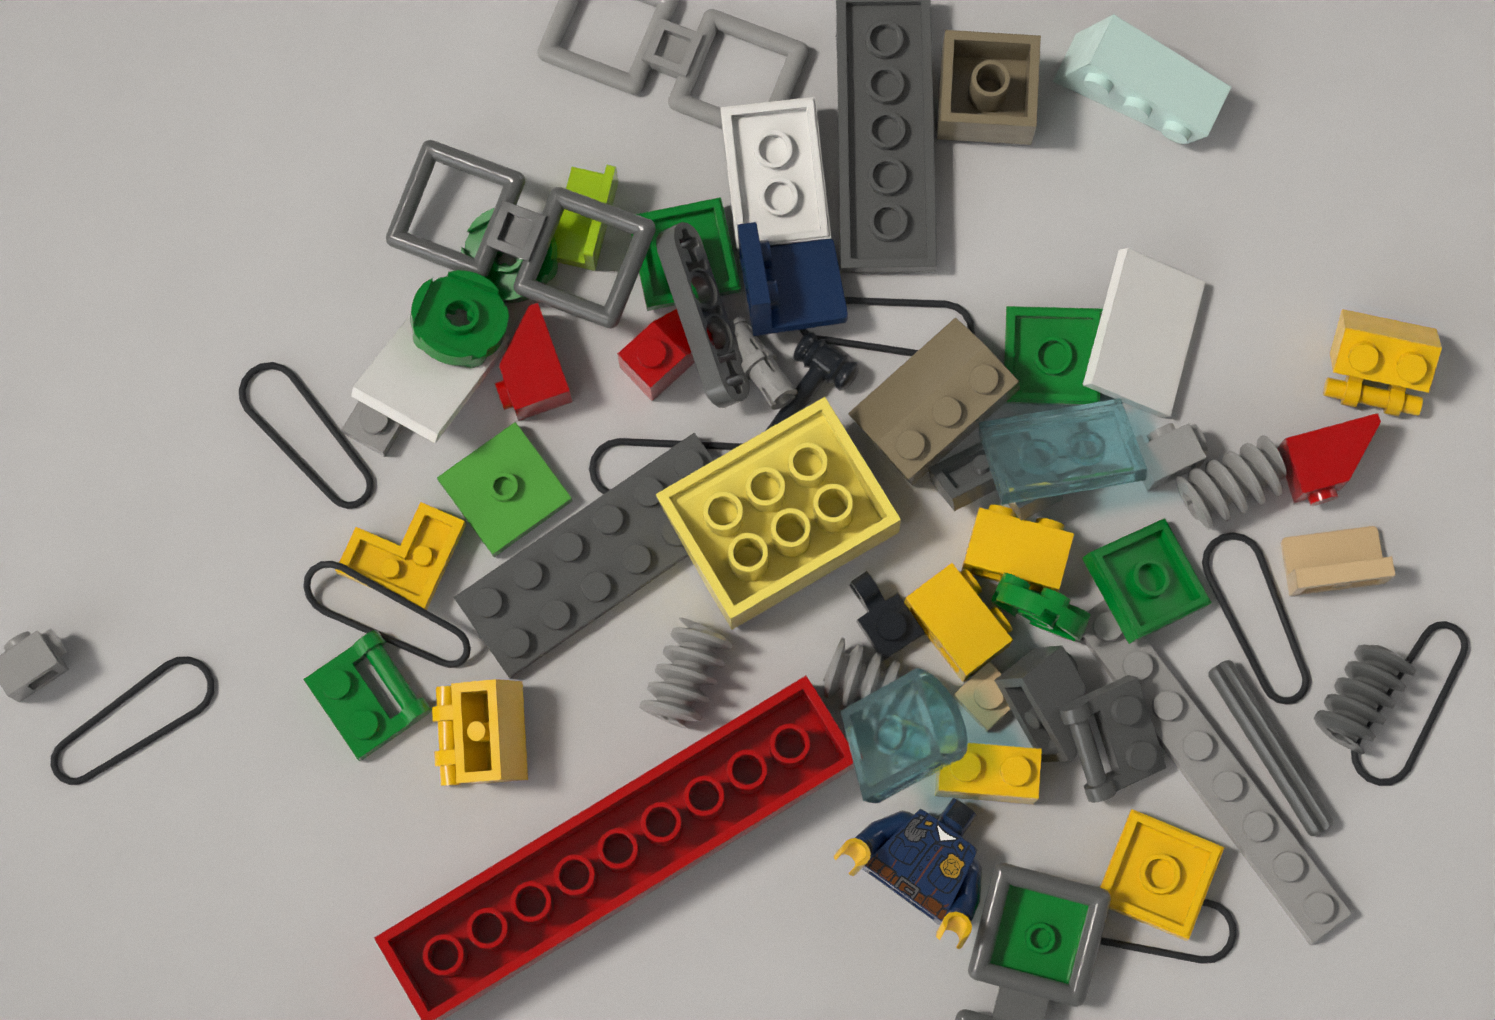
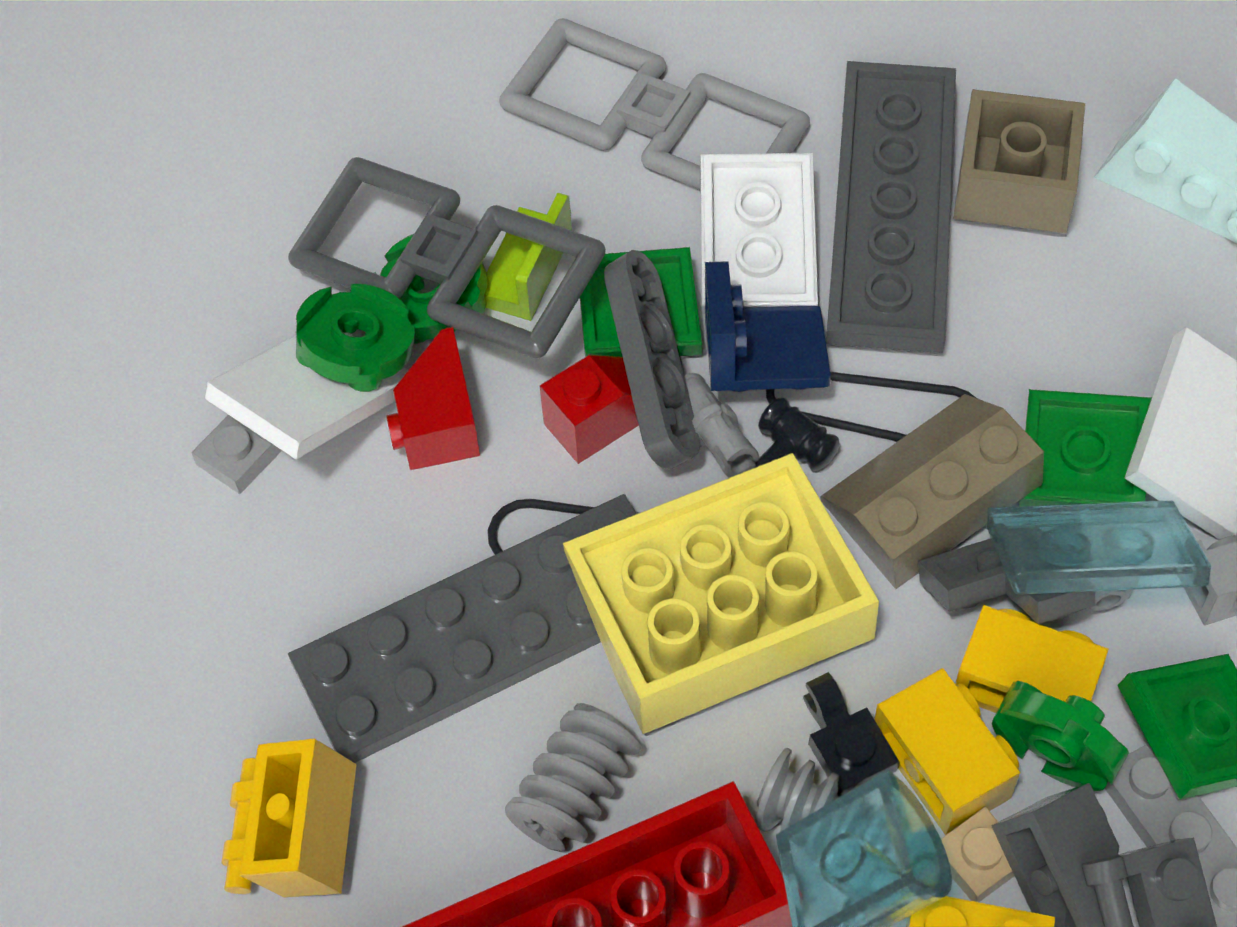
camera: 10 degrees right, 20 degrees down
(286, 449) = (127, 480): black piece -> none
(353, 704) = (133, 776): green plate -> none
(394, 596) = (216, 645): black piece -> none
(416, 564) = (241, 617): yellow plate -> none
(504, 489) = (378, 541): bright green plate -> none

